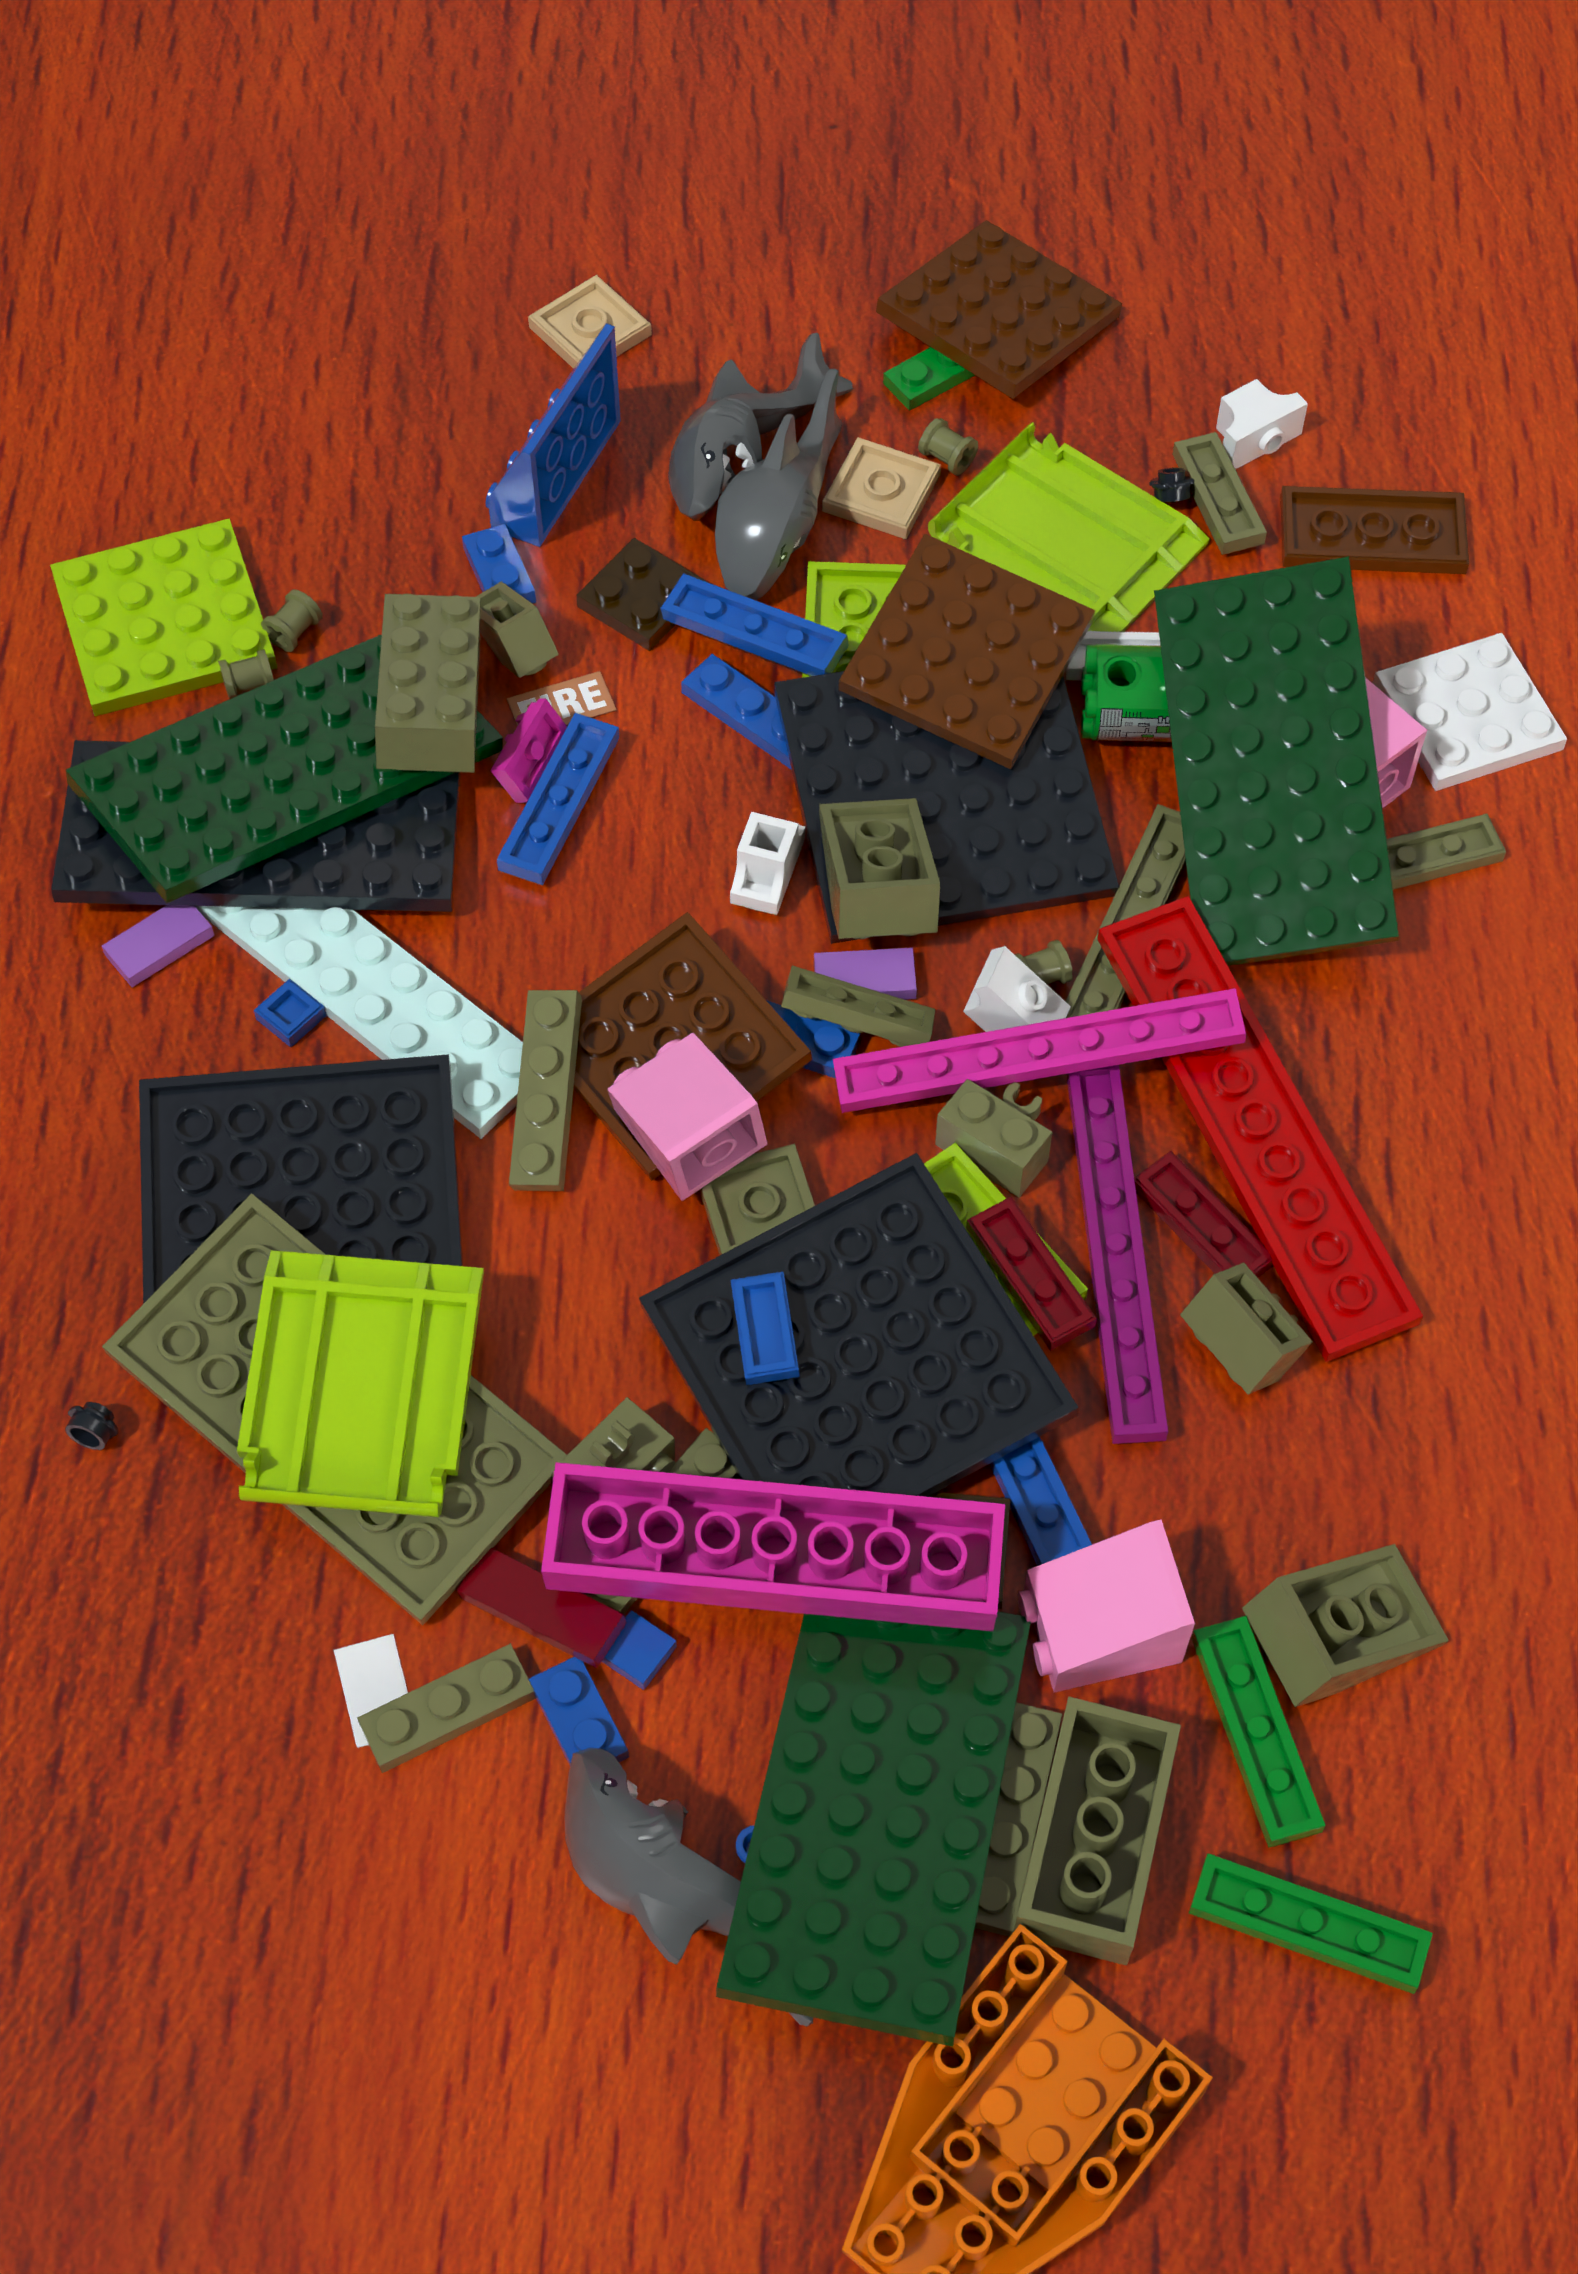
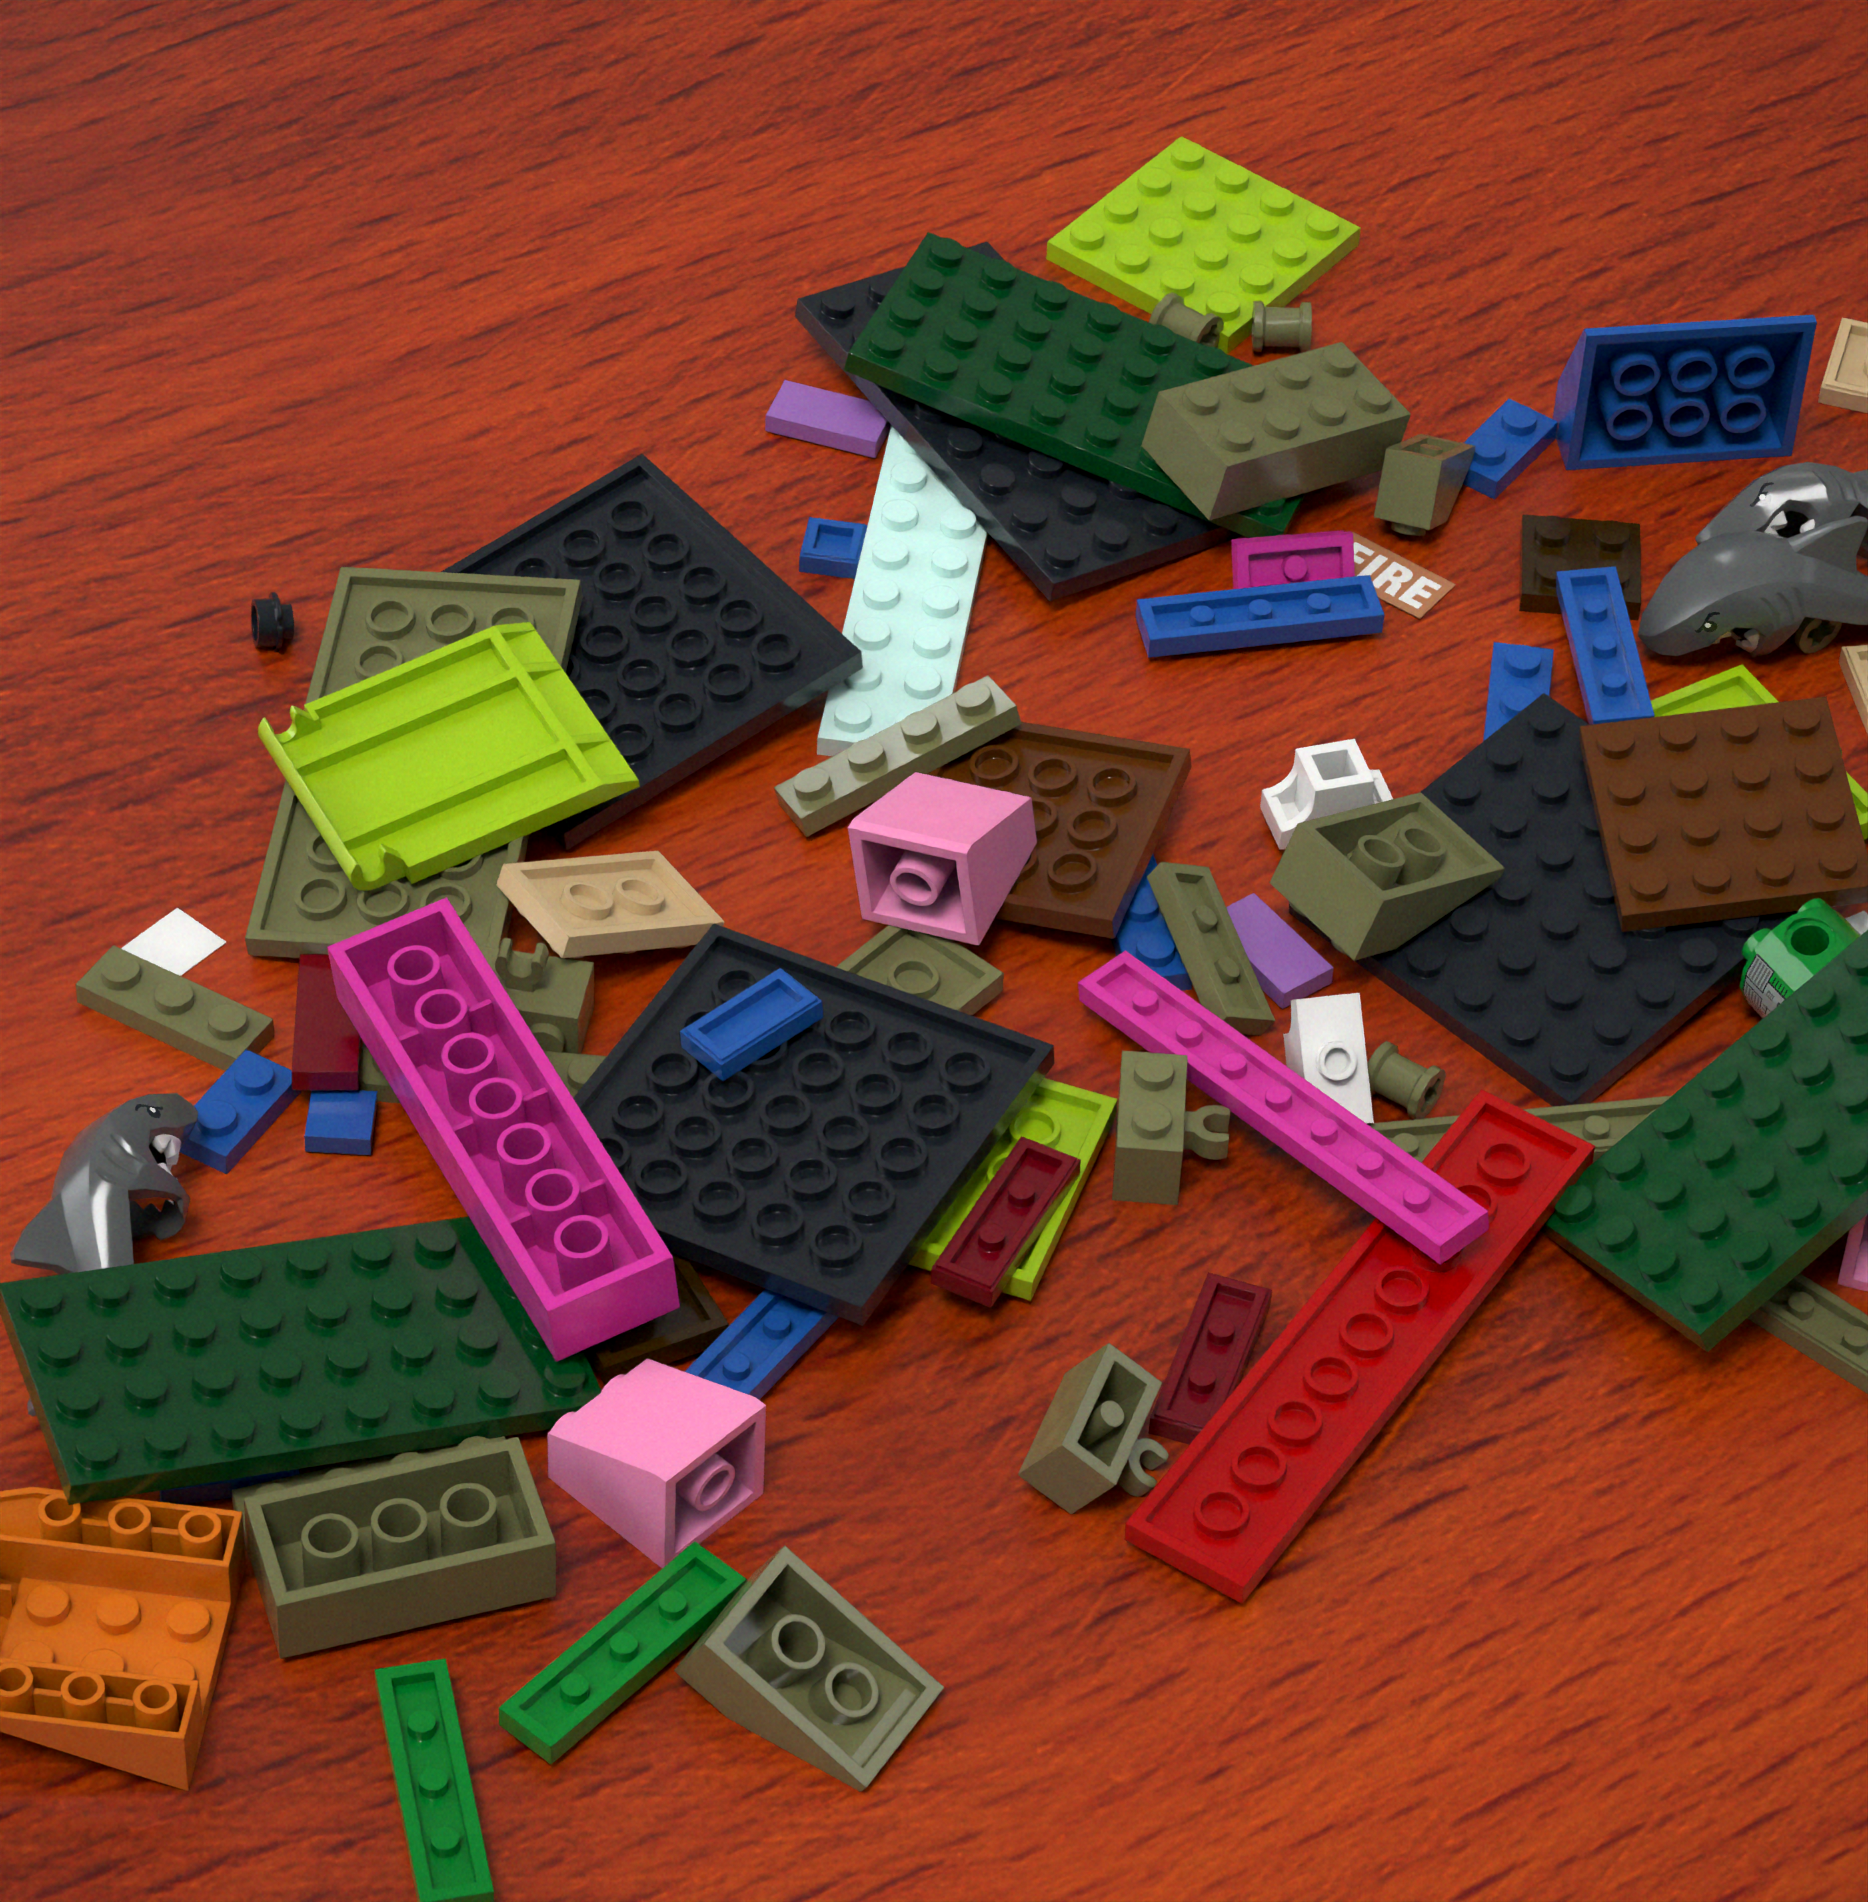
camera: 55 degrees right, 15 degrees down
(569, 1355) = (608, 903): none -> tan plate
(1117, 1257) = (1102, 1295): magenta plate -> none

